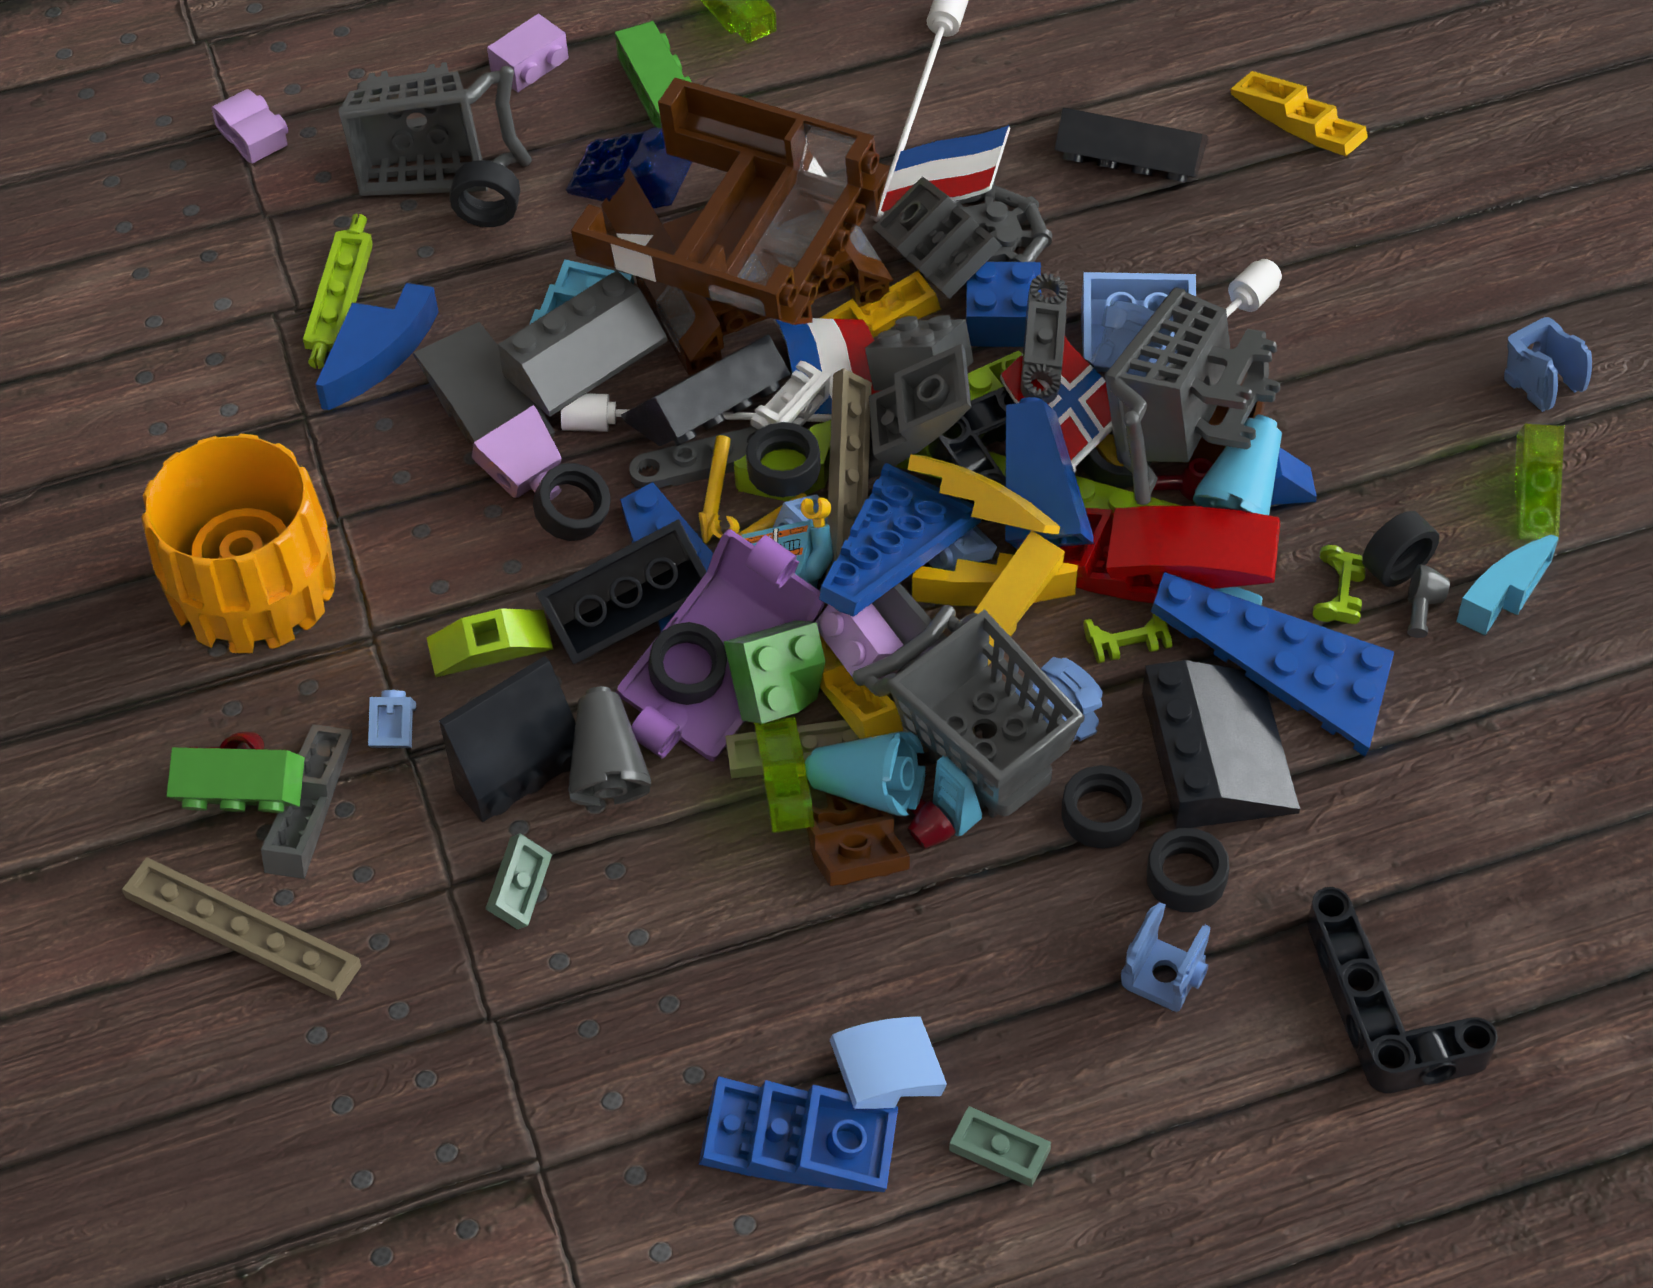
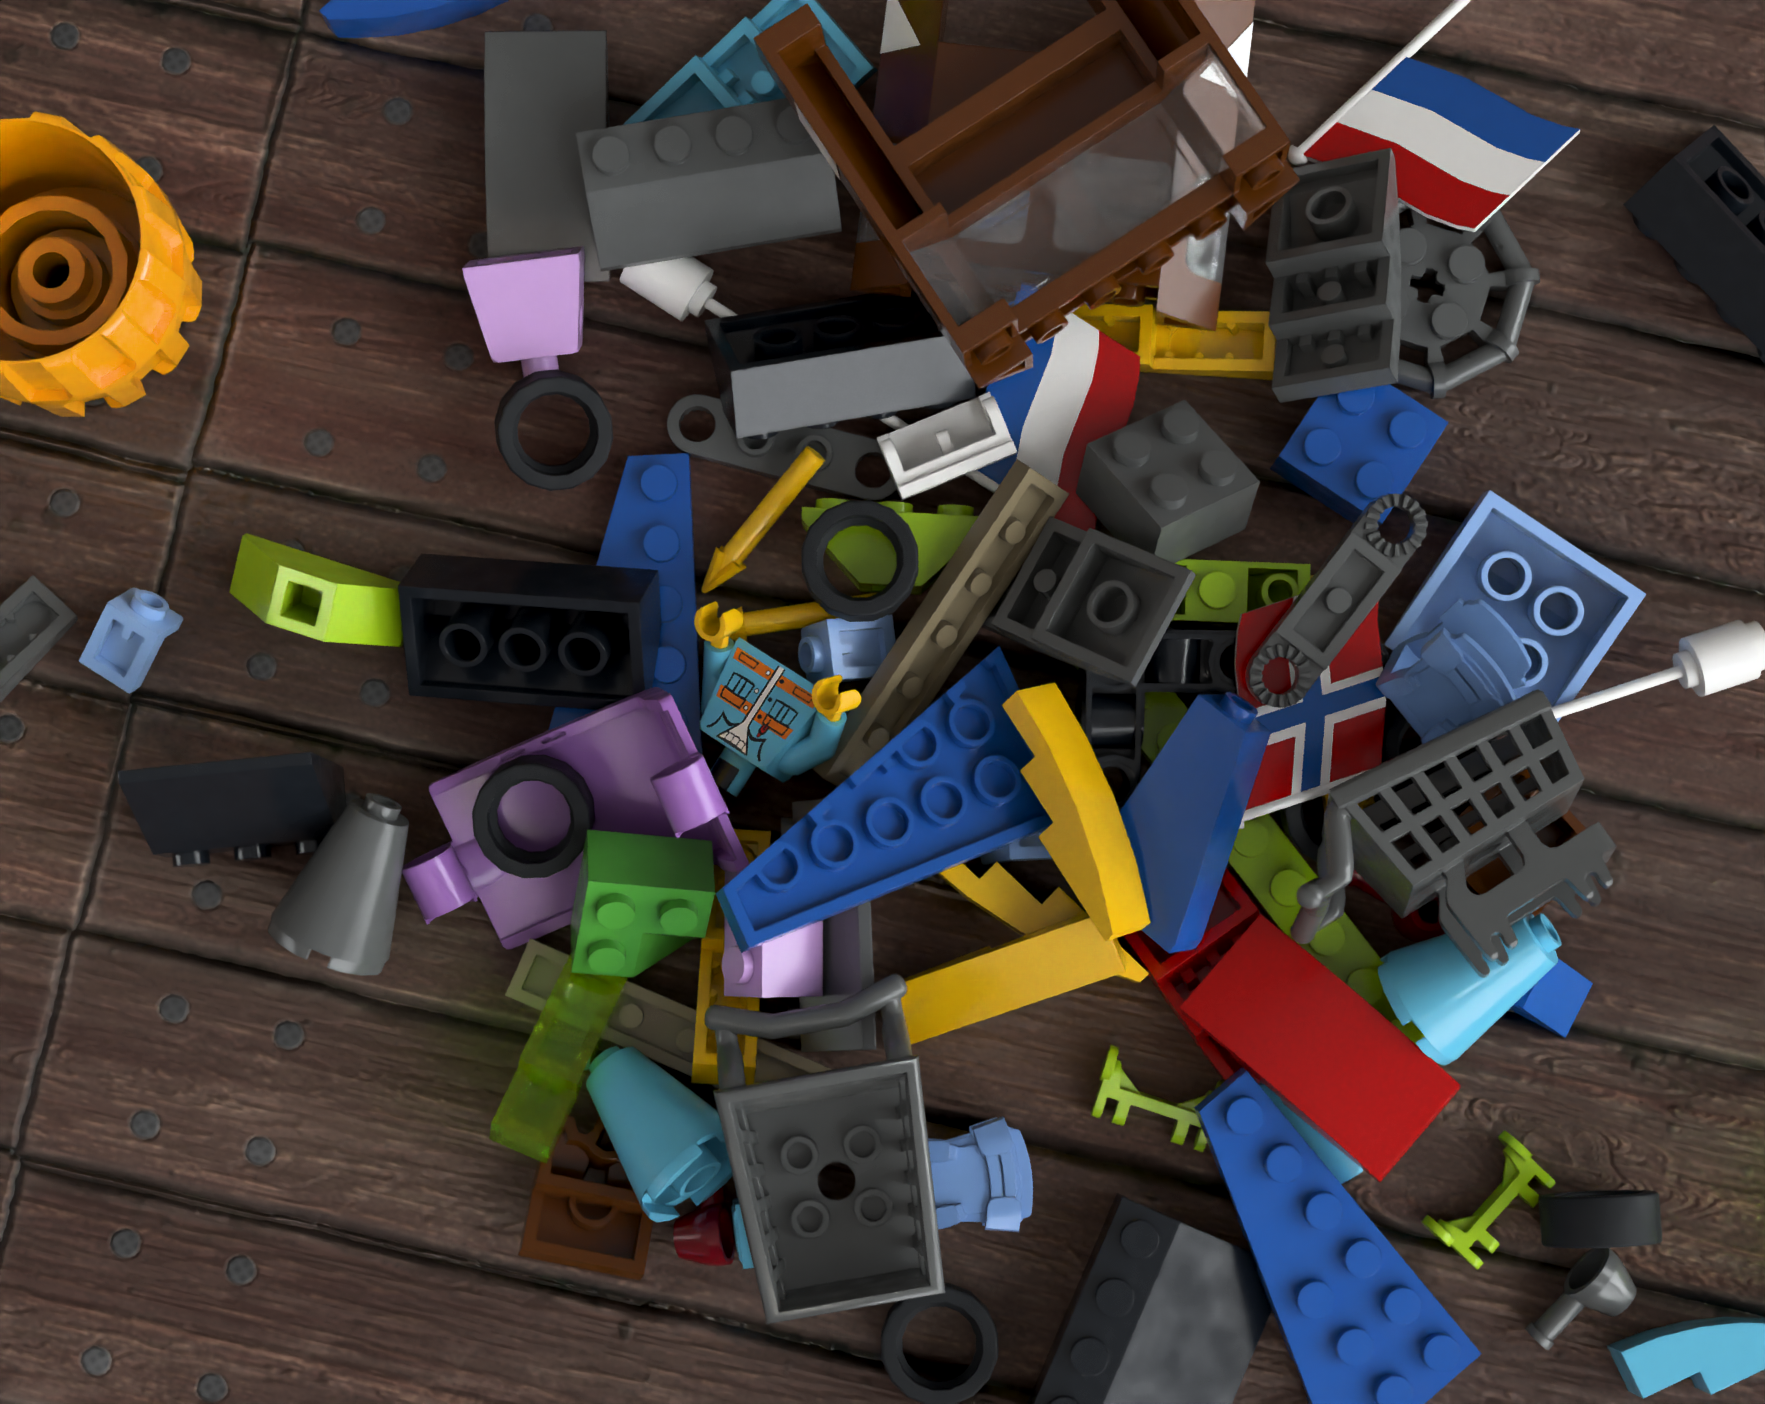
camera: 30 degrees right, 30 degrees up
(518, 881) = (149, 992): sand green plate -> none

